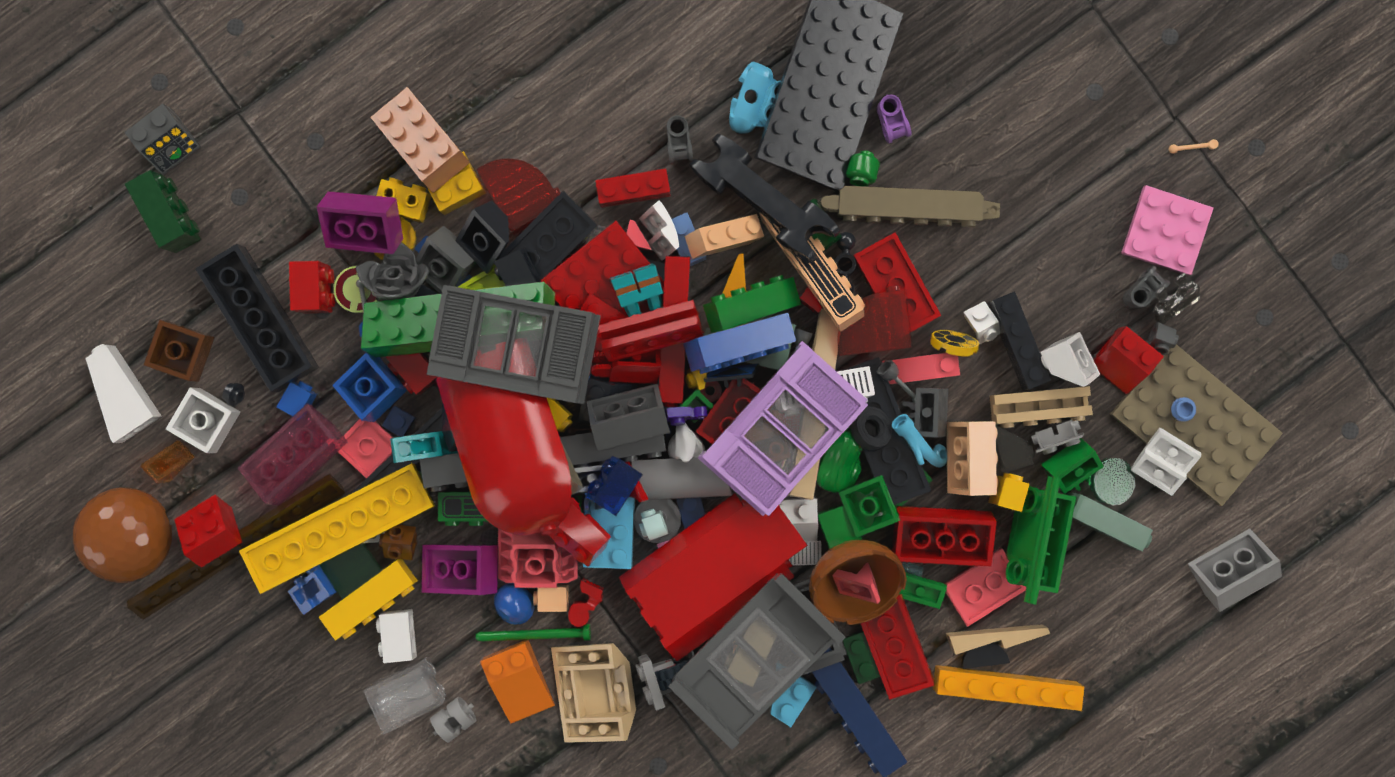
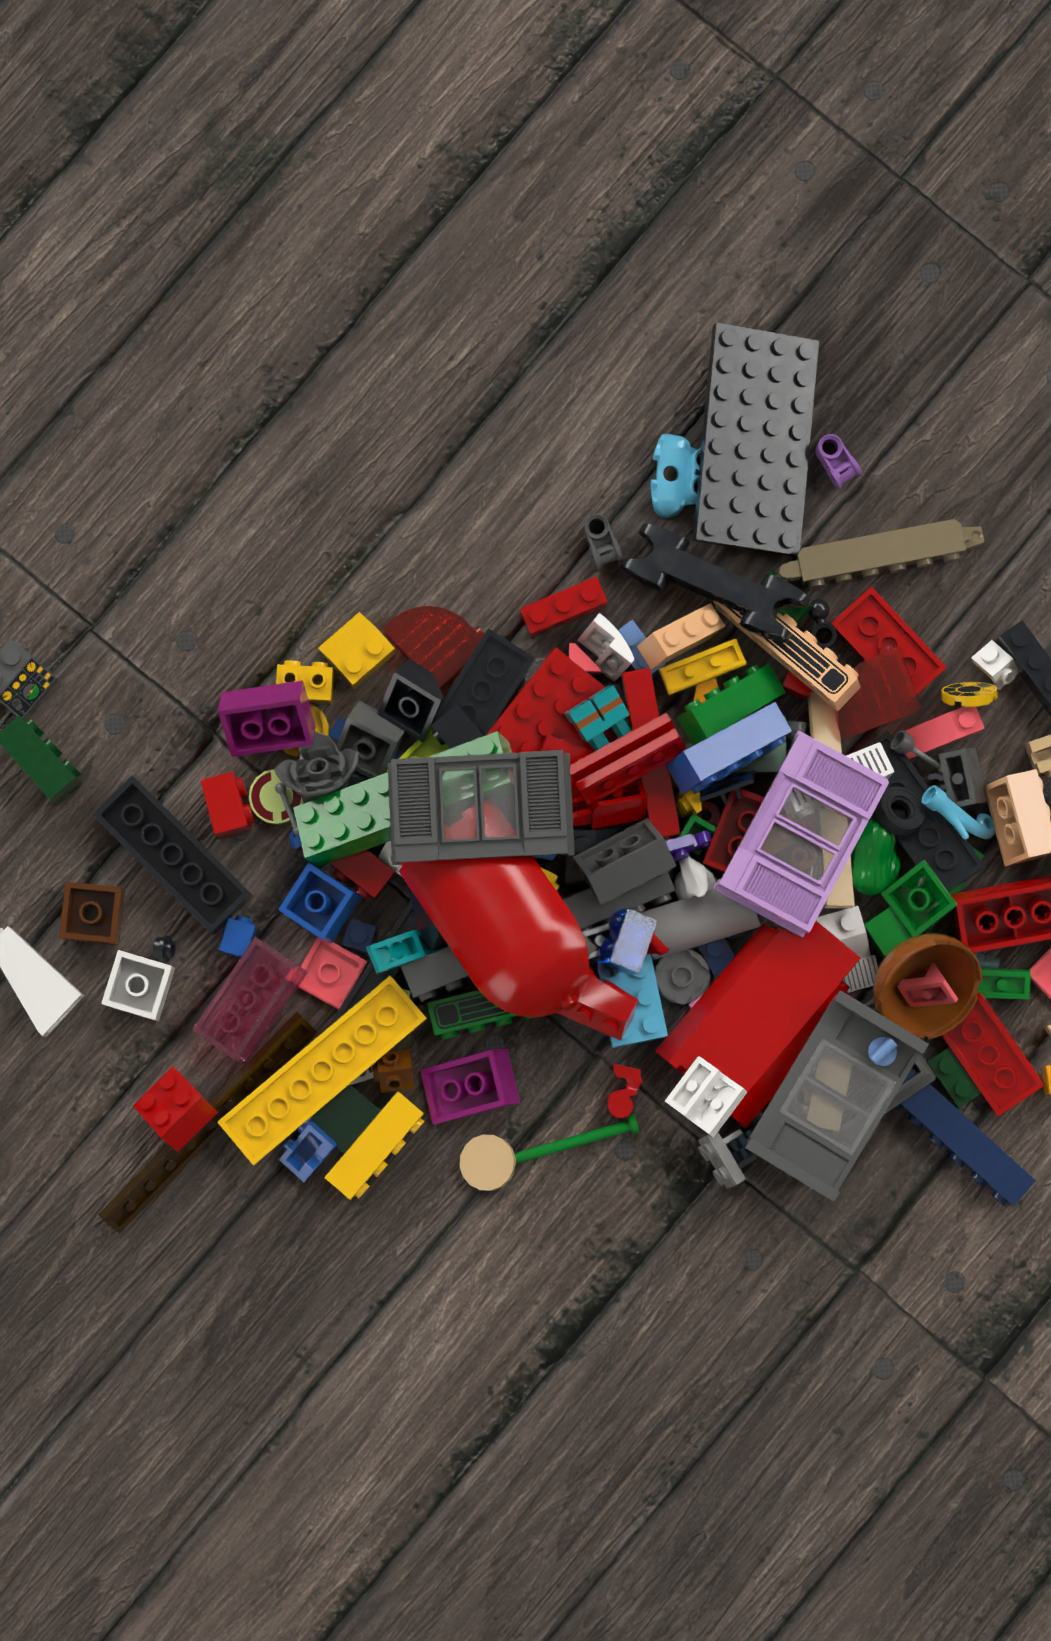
camera: 15 degrees left, 5 degrees down
(122, 535) = (73, 1141): dark orange piece -> none
(168, 462) = (109, 1043): clear orange slope -> none
(396, 636) = (417, 1180): white brick -> none
(404, 695) = (445, 1242): clear slope -> none
(420, 140) = (311, 610): brick -> none
(450, 721) = (505, 1259): light grey wheel -> none
(458, 635) = (487, 1162): none -> tan tile
(514, 604) = (542, 1112): blue hat -> none
(517, 681) = (569, 1200): orange slope -> none
(534, 561) = (553, 1051): coral slope -> none
(552, 599) = (584, 1093): light nougat brick -> none
(594, 692) = (658, 1189): tan slope -> none
(648, 630) = (706, 1096): none -> white slope
(653, 524) = (680, 980): light aqua plate -> none
(736, 266) = (702, 667): none -> yellow tile
(792, 701) = (886, 1145): medium azure wing -> none
(805, 631) = (882, 1051): none -> medium blue plate
(863, 169) = (817, 524): green head -> none

